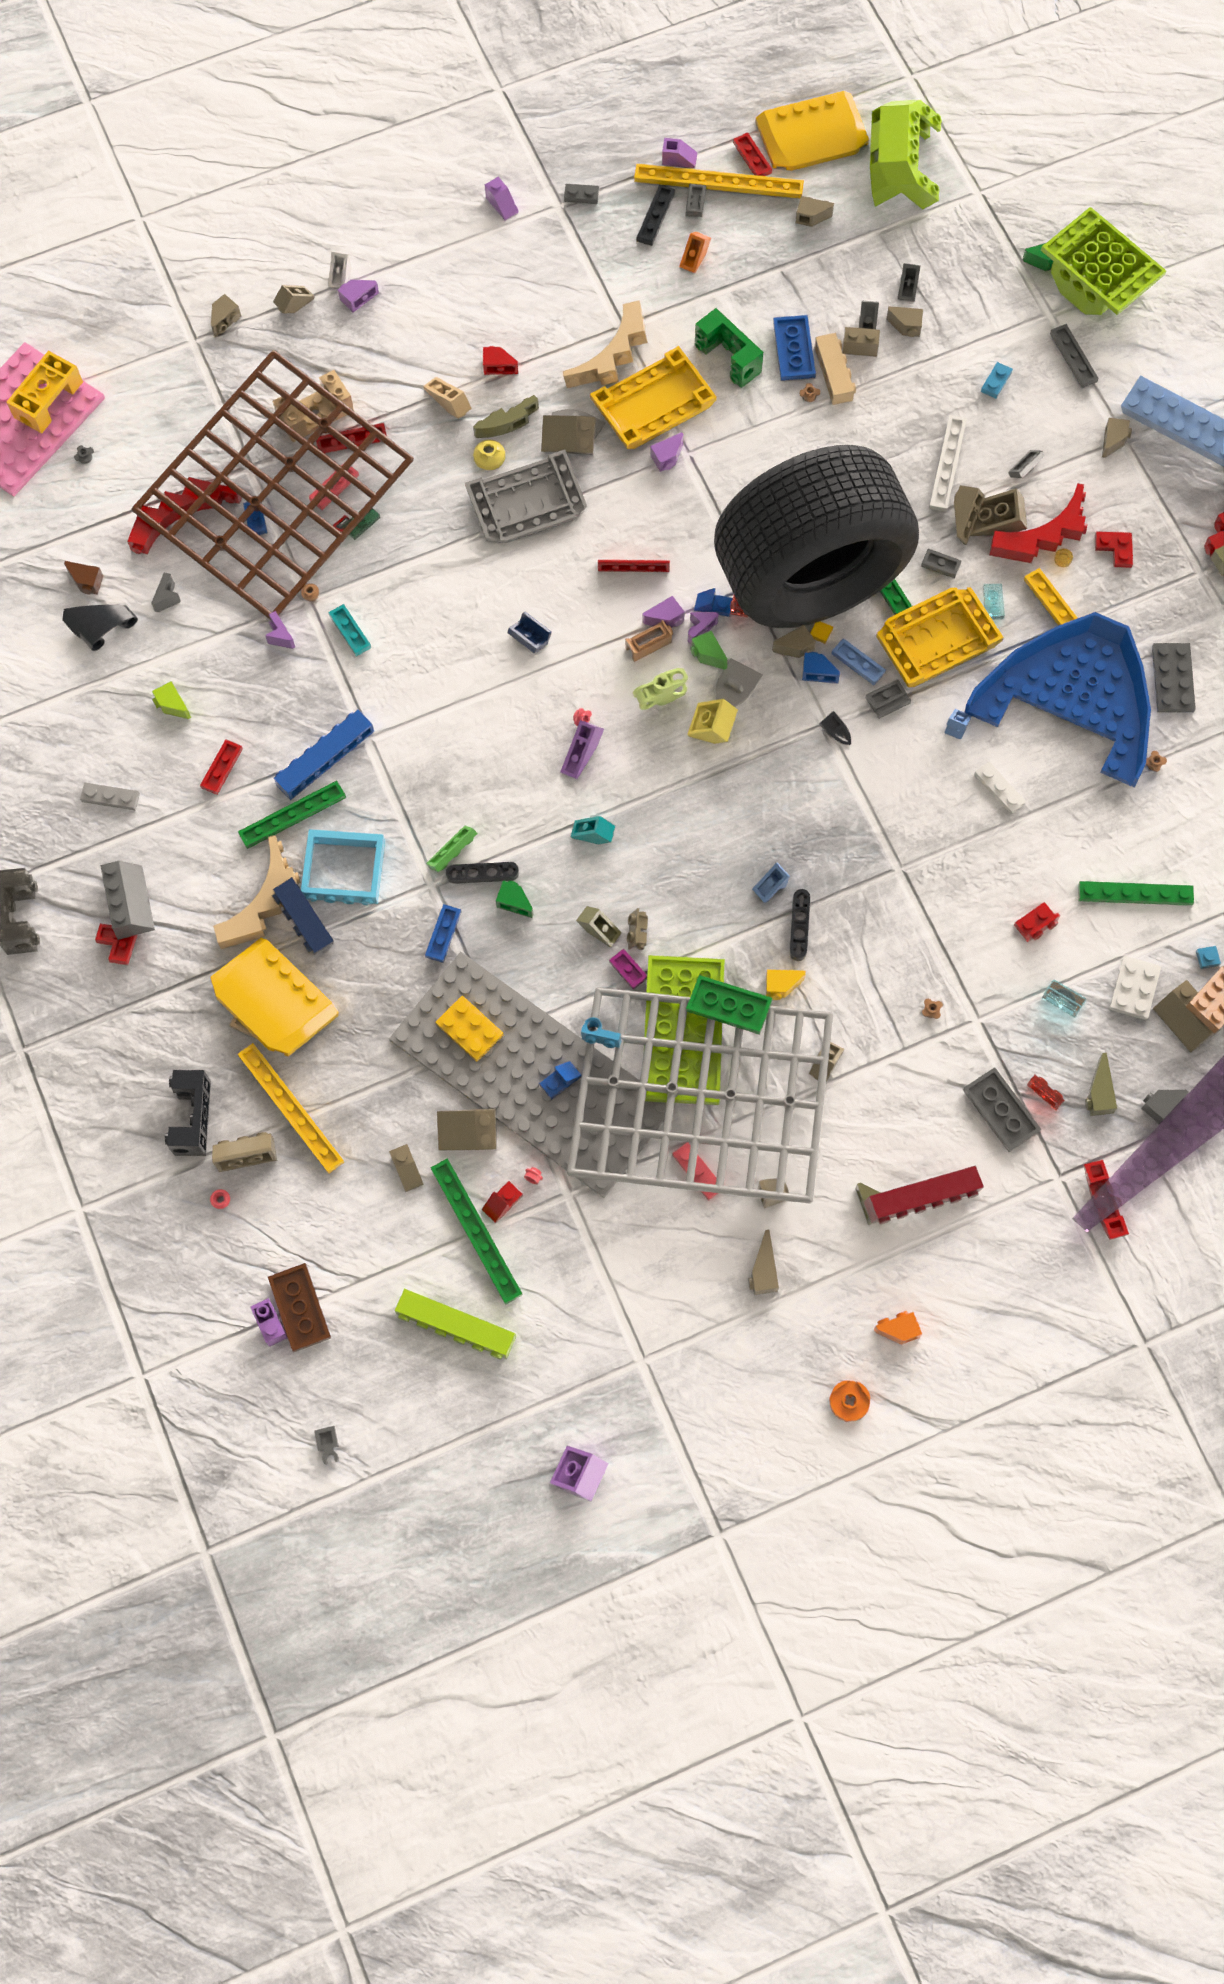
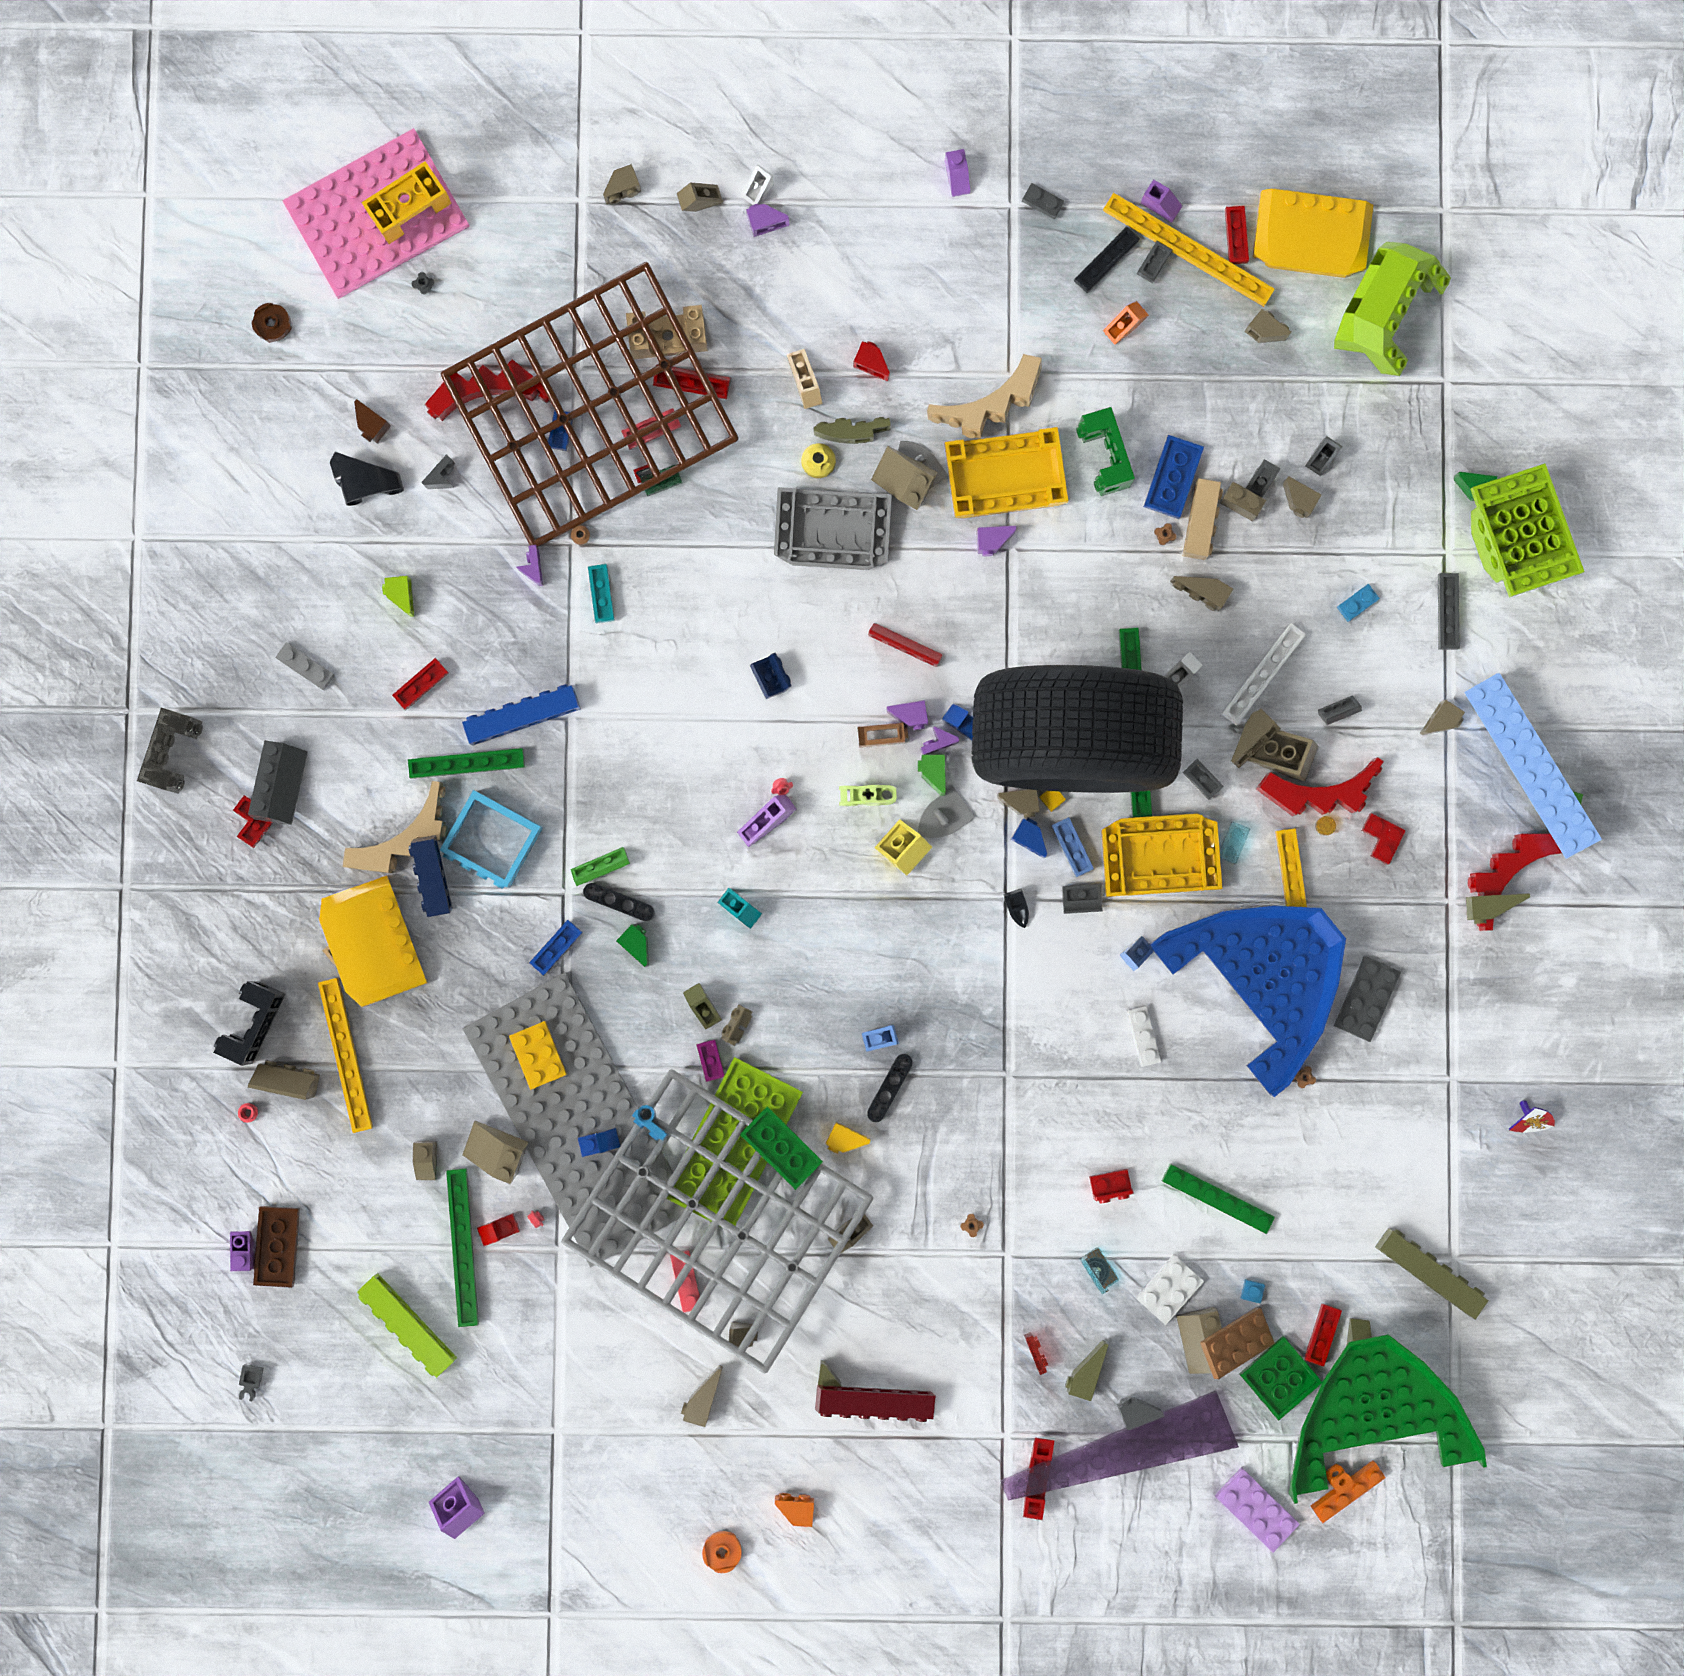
camera: 20 degrees right, 15 degrees up
(864, 419) = (1208, 590): none -> dark tan slope
(1002, 1109) = (987, 1350): dark grey plate -> none

